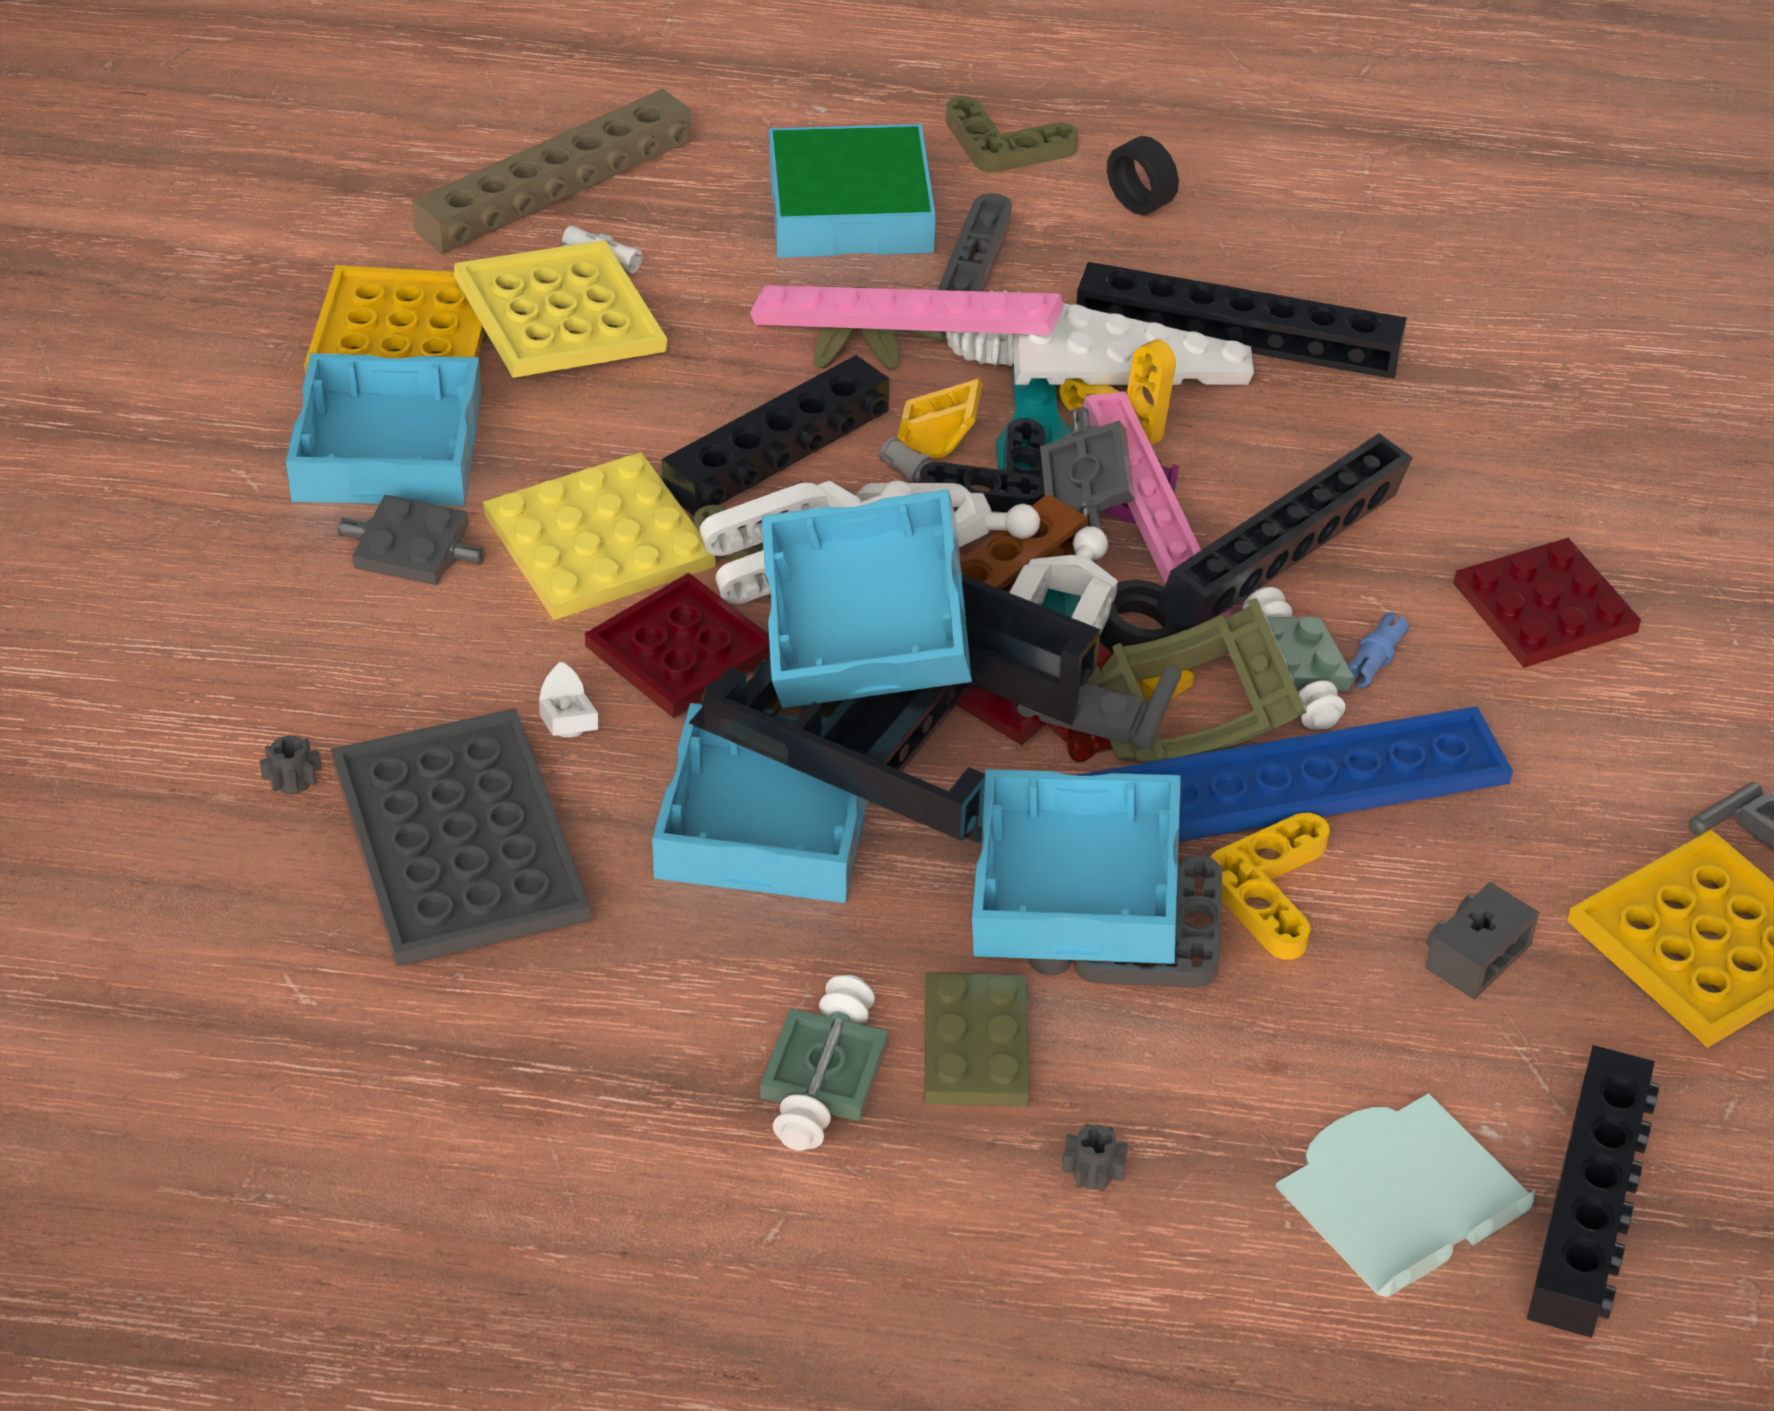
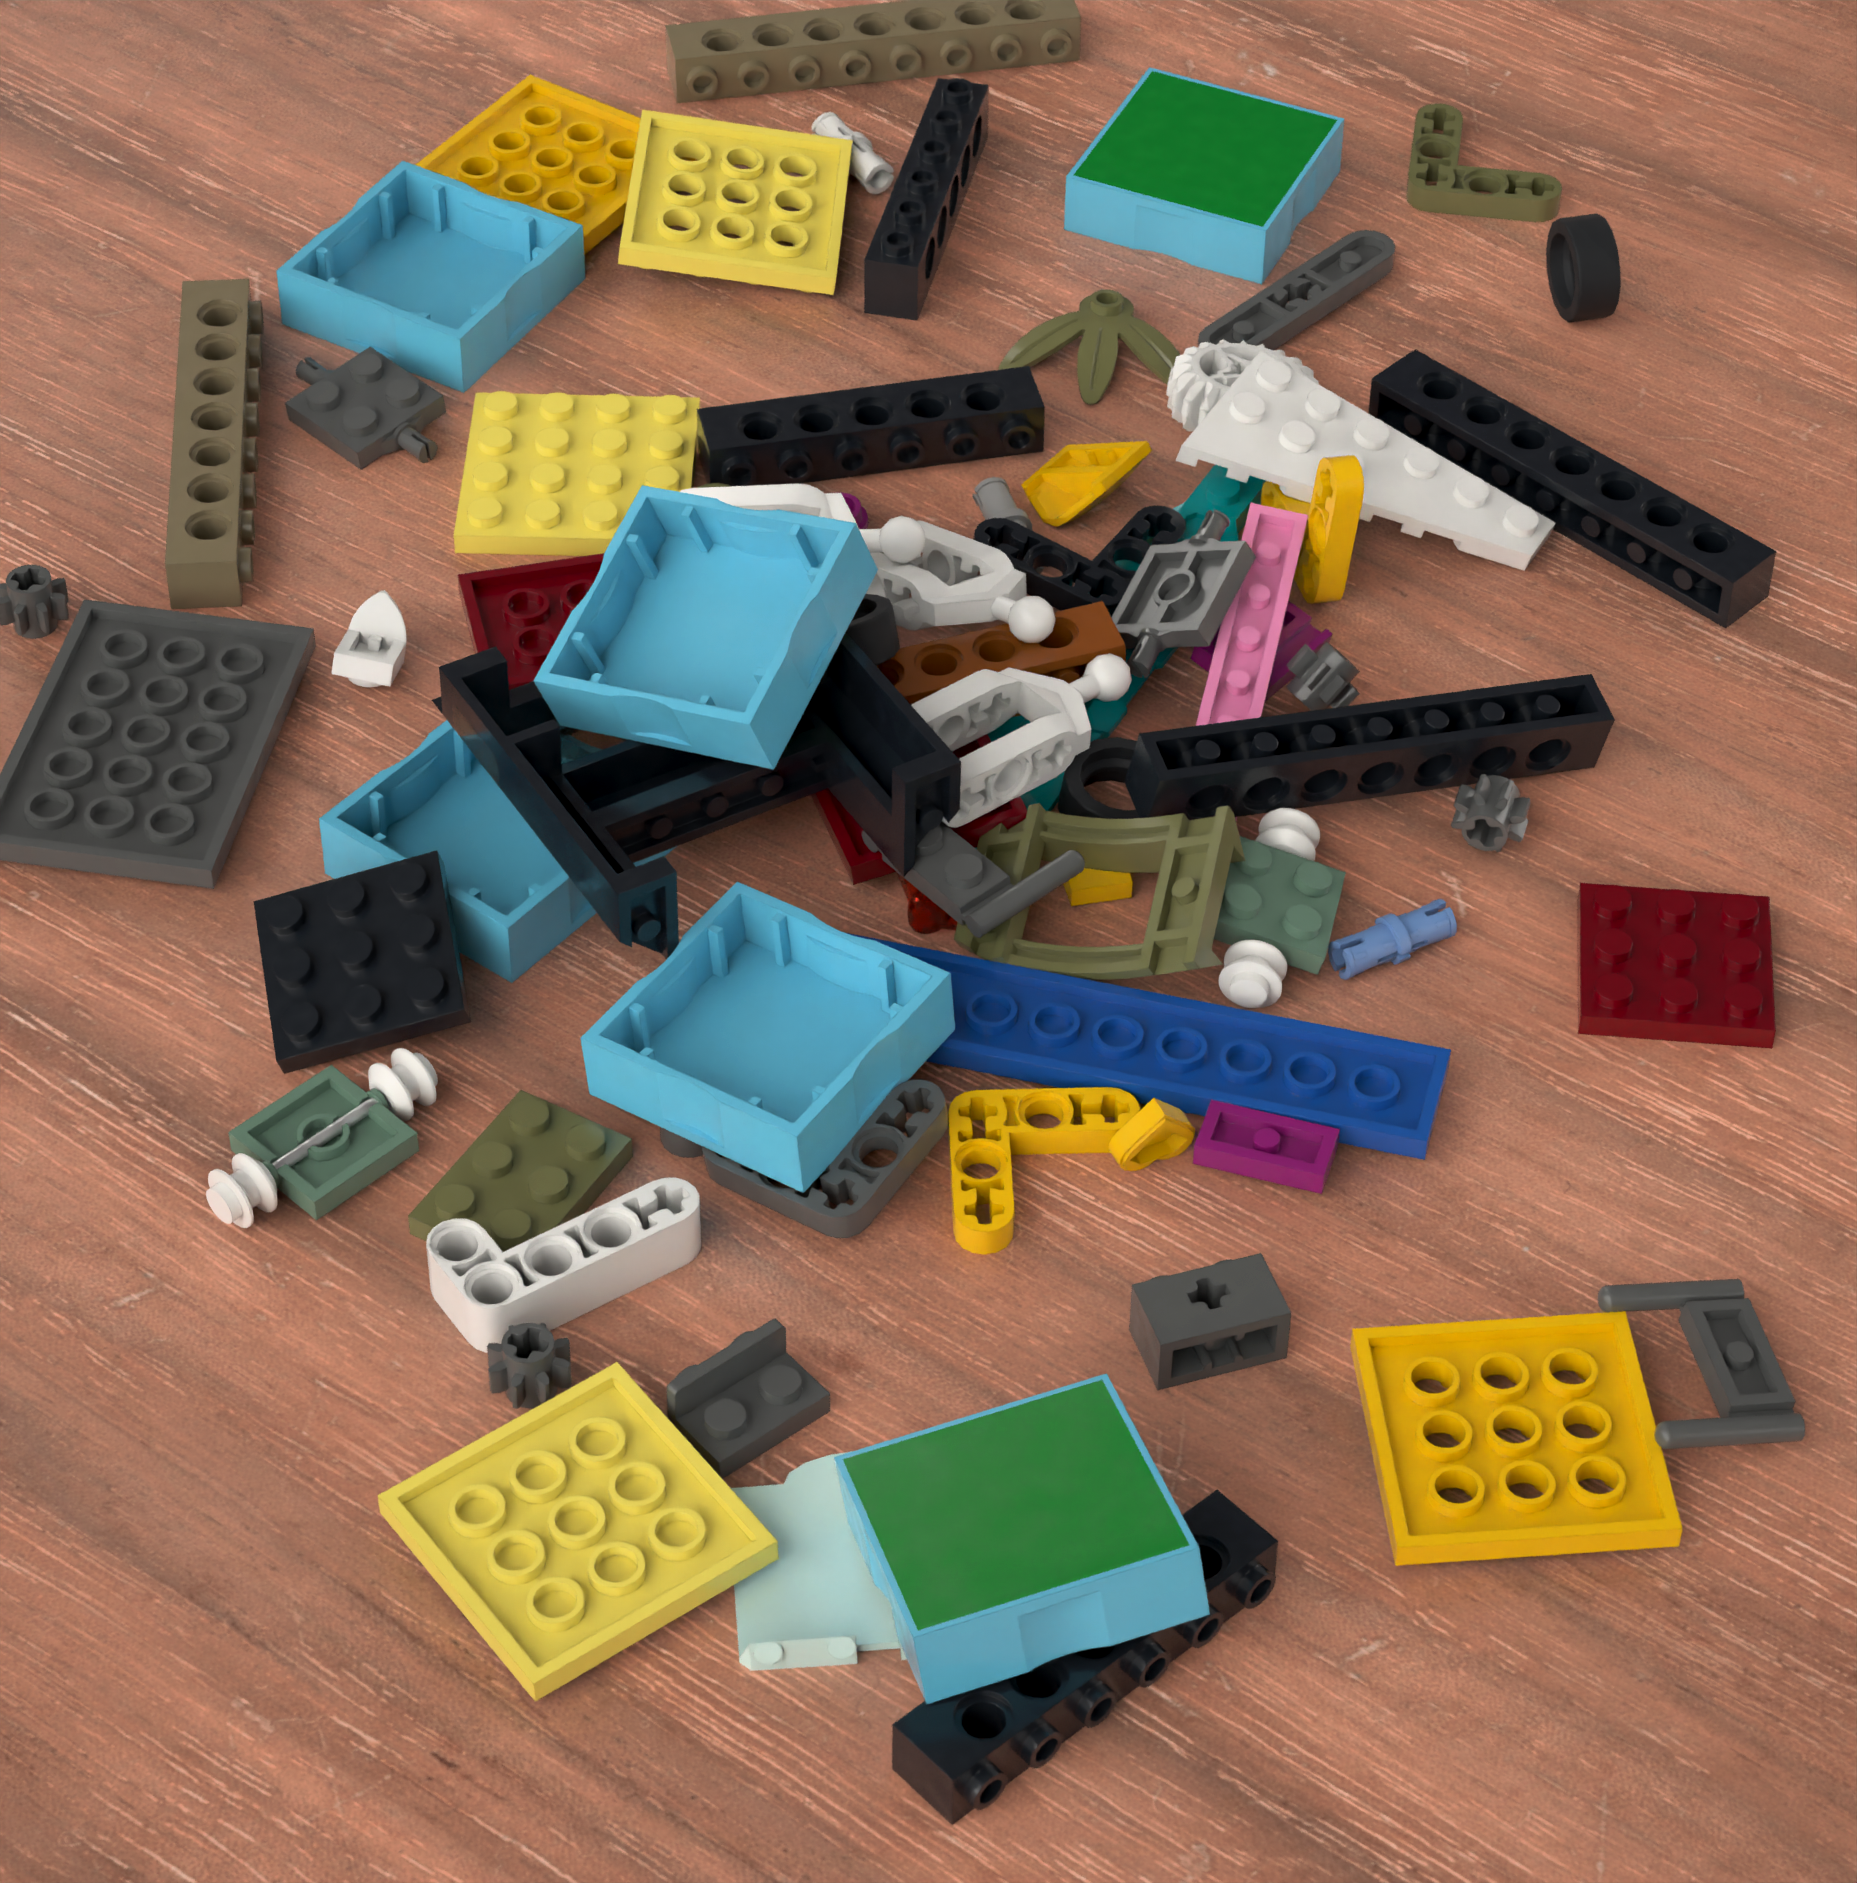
camera: 30 degrees right, 0 degrees up
(327, 604) = (212, 445): none -> dark tan brick
(684, 265) = (926, 199): none -> black brick
(756, 928) = (361, 962): none -> black plate
(908, 309) = (1128, 332): bright pink plate -> none
(1037, 1117) = (565, 1267): none -> white beam
(1203, 497) = (1322, 678): none -> dark grey gear
(1216, 1254) = (577, 1530): none -> light yellow plate
(1246, 1121) = (745, 1399): none -> dark grey bracket
(1346, 837) = (1150, 1135): none -> yellow tile
(1373, 545) = (1491, 813): none -> dark grey gear
(1417, 813) = (1266, 1146): none -> magenta plate
(1517, 1128) = (1021, 1537): none -> green tile

